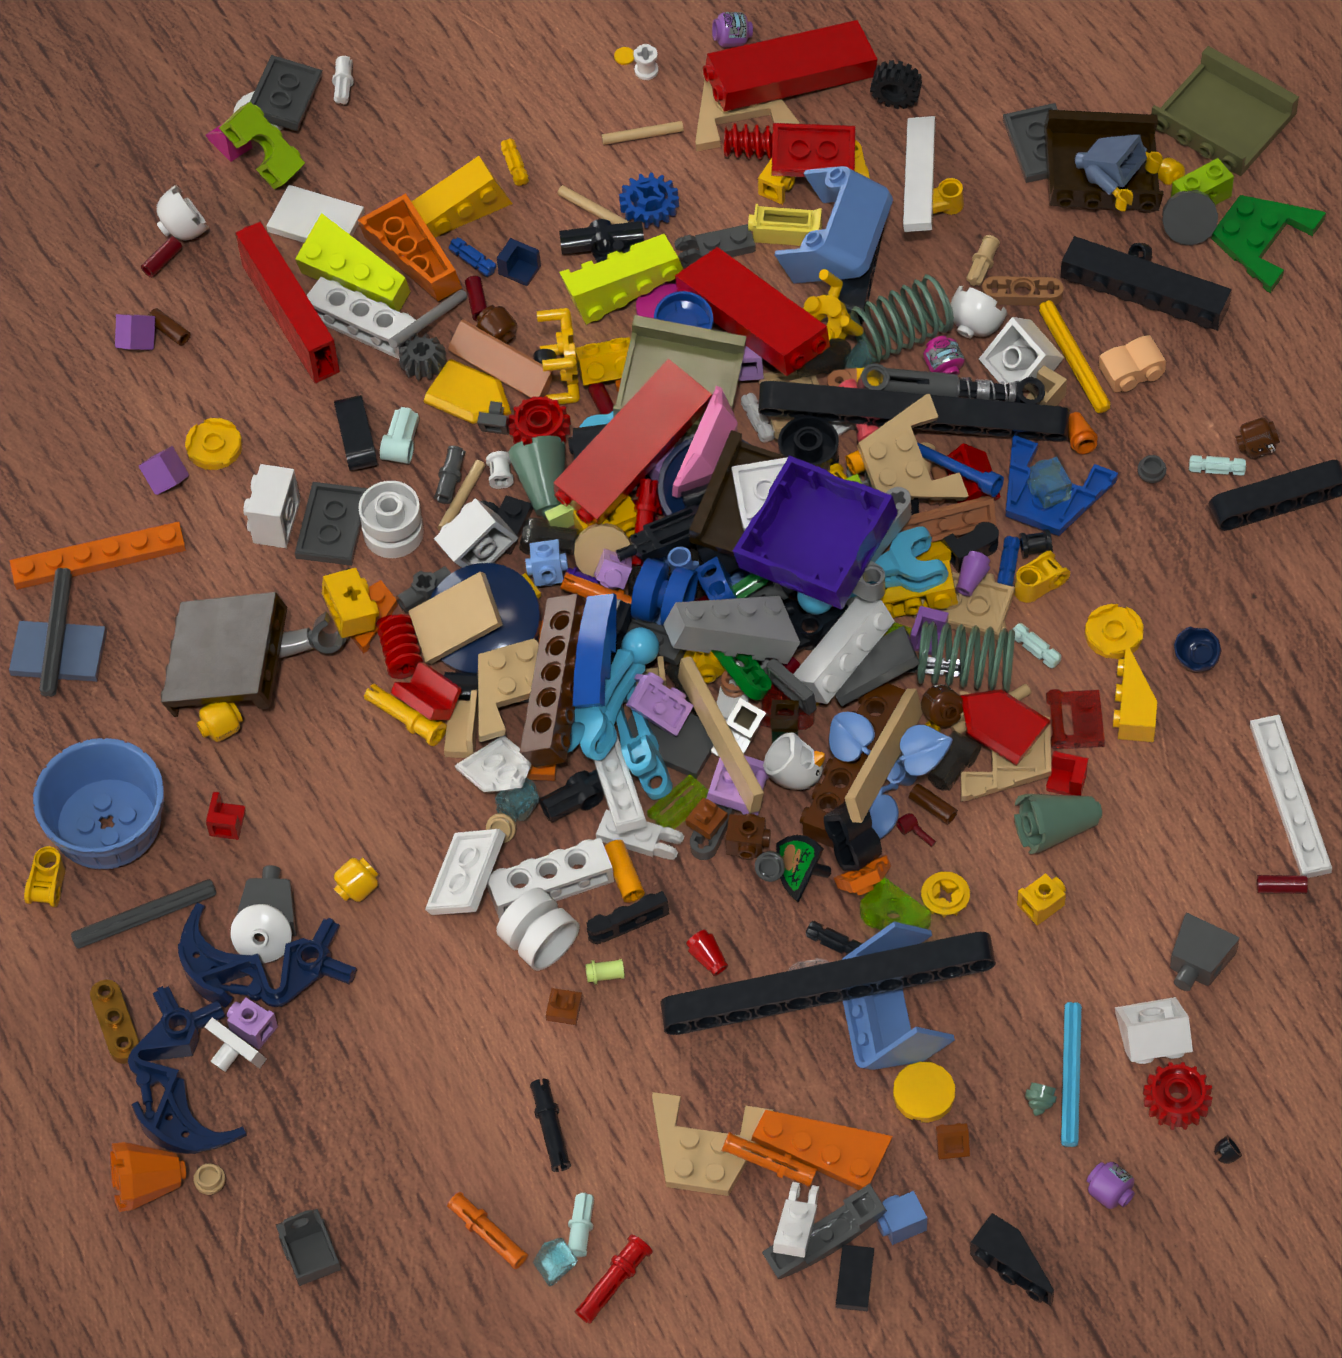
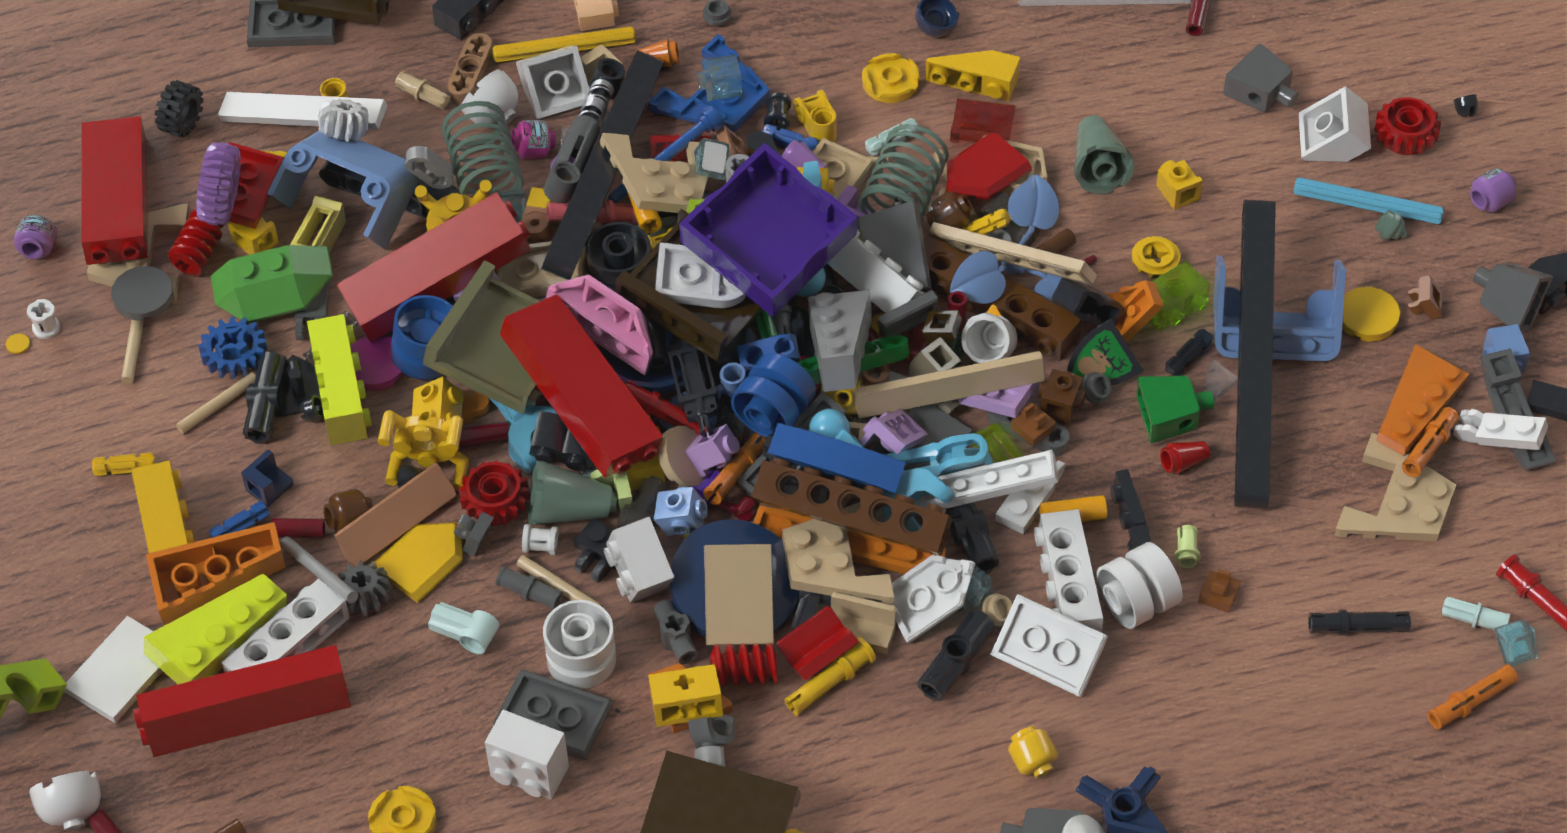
camera: 80 degrees left, 5 degrees down
(355, 433) = (442, 668): black beam -> none
(429, 797) = (947, 668): none -> black piece
(688, 120) = (142, 292): none -> dark grey tile
(718, 209) = (272, 281): none -> bright green wedge
(760, 931) = (1170, 405): none -> green torso
(781, 123) = (218, 183): none -> medium lavender gear
(819, 732) = (958, 302): none -> dark red axle
(860, 276) = (429, 167): none -> light grey beam
(889, 195) = (343, 119): none -> white gear
(936, 493) = (711, 158): none -> slope
(967, 1211) = (1513, 292): none -> dark grey torso
(1067, 774) = (1049, 134): red panel -> none

